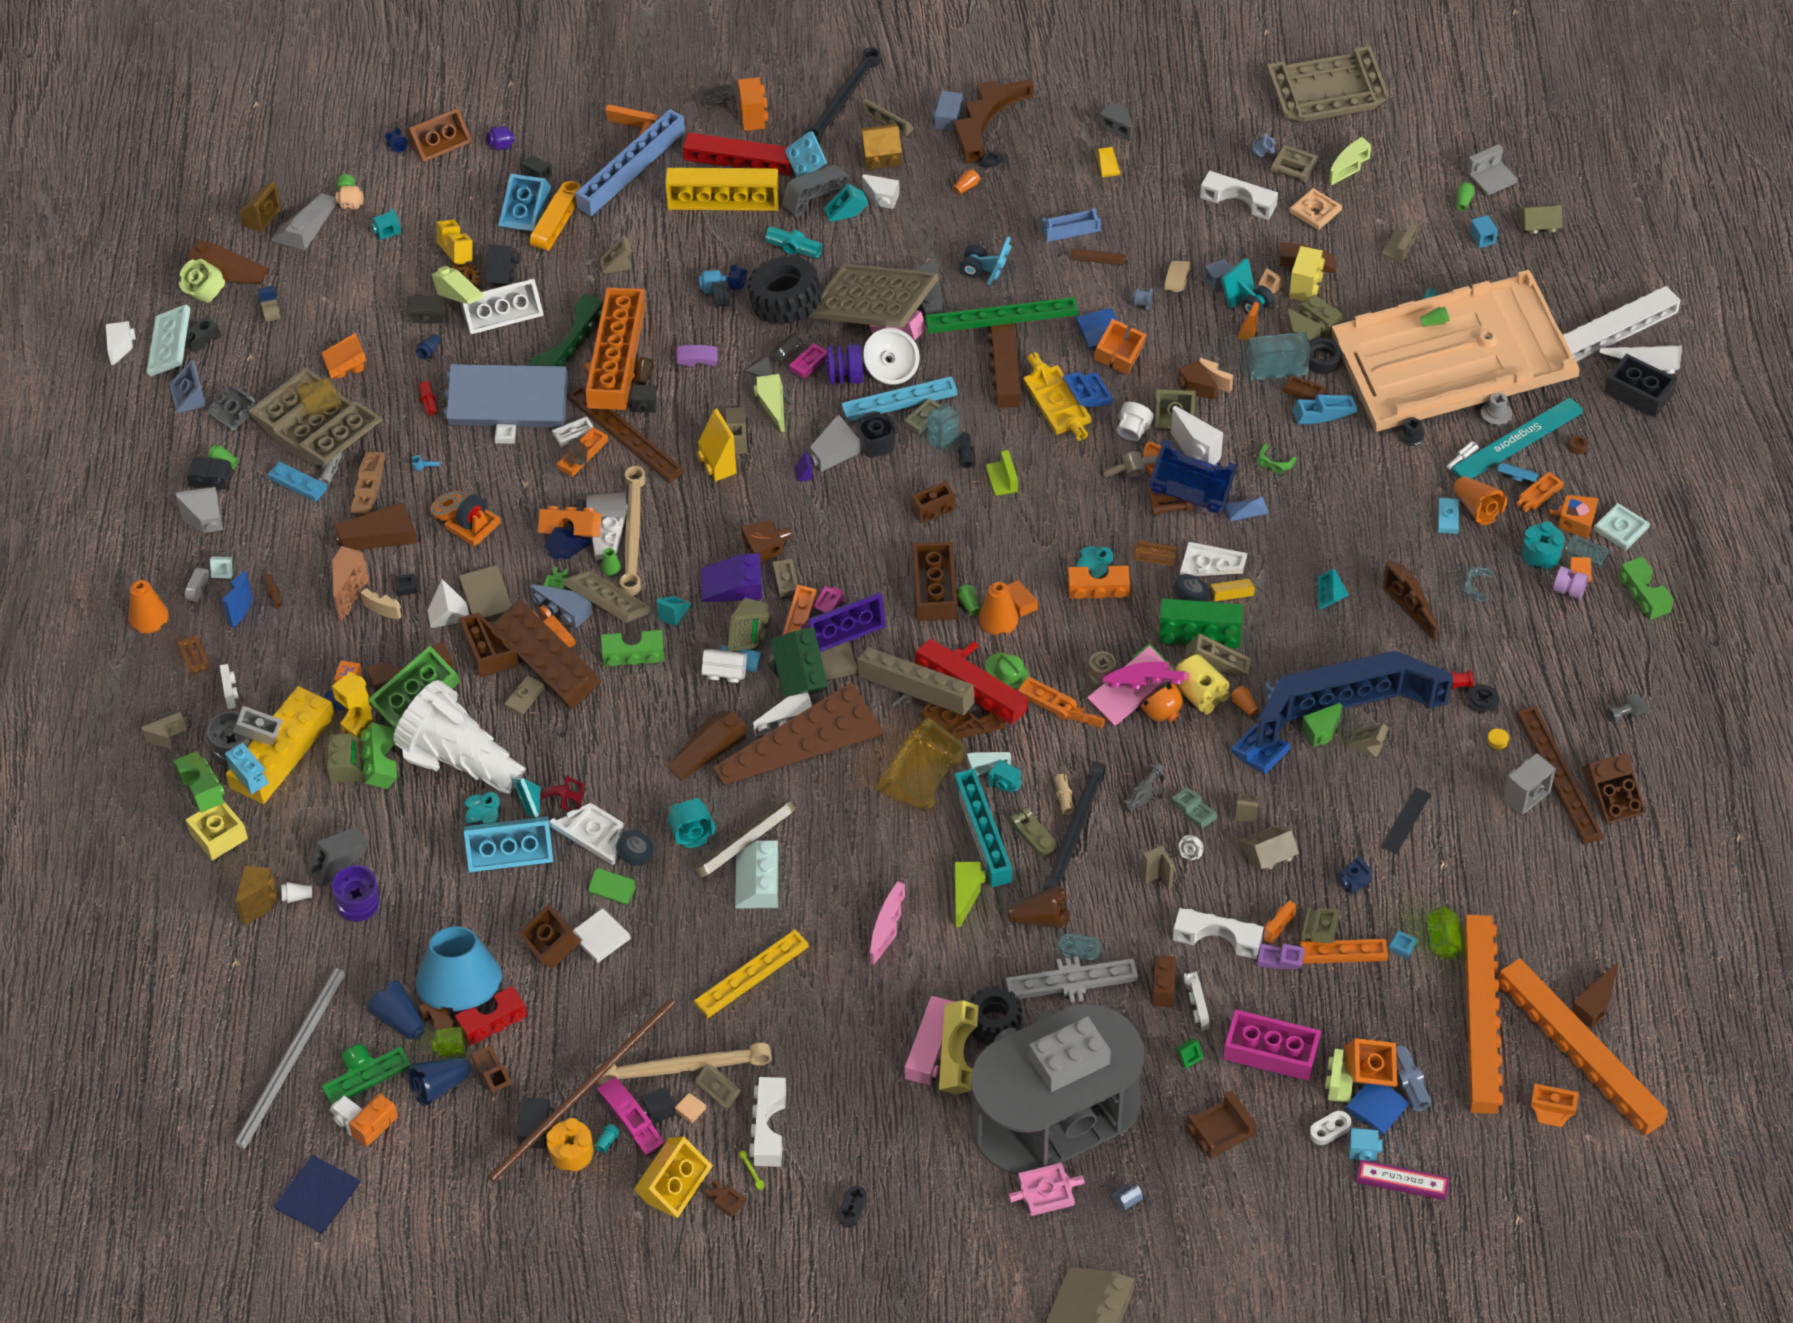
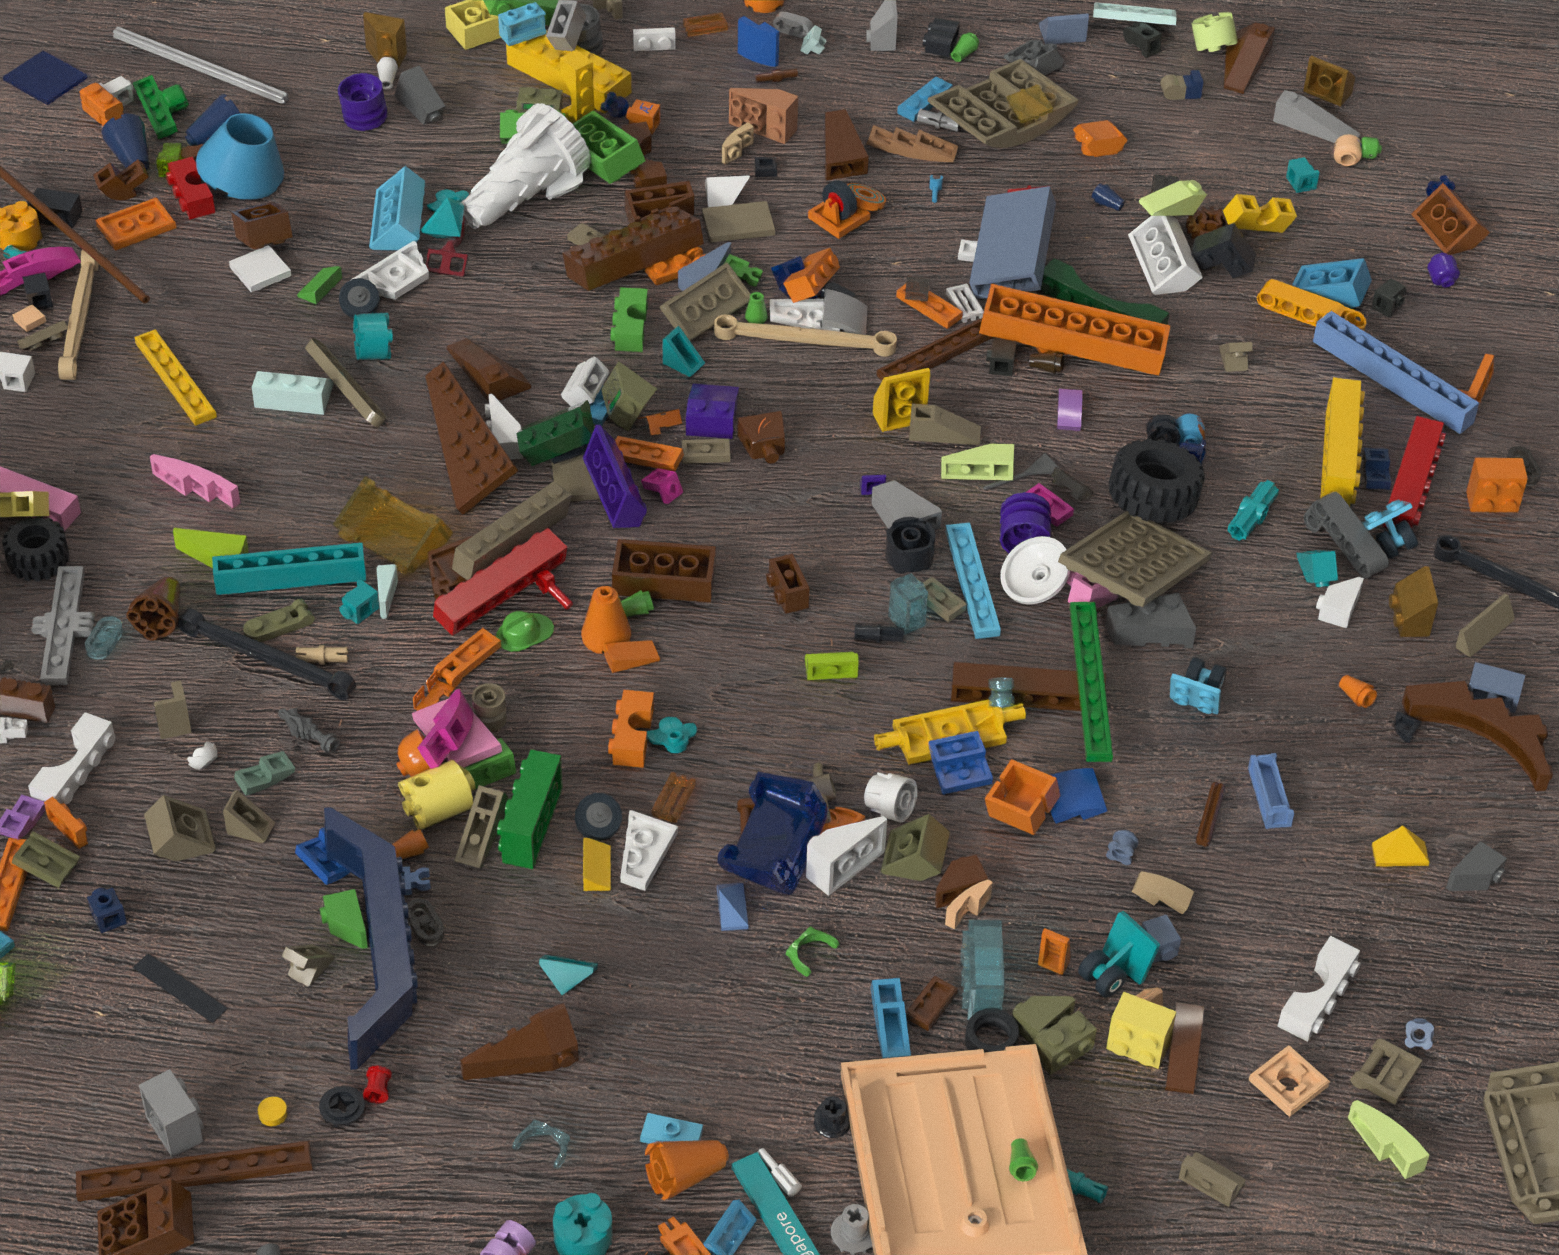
camera: 95 degrees right, 5 degrees down
(542, 1055) = (135, 223): none -> orange tile
(1026, 362) = (1001, 692): none -> clear light blue wheel

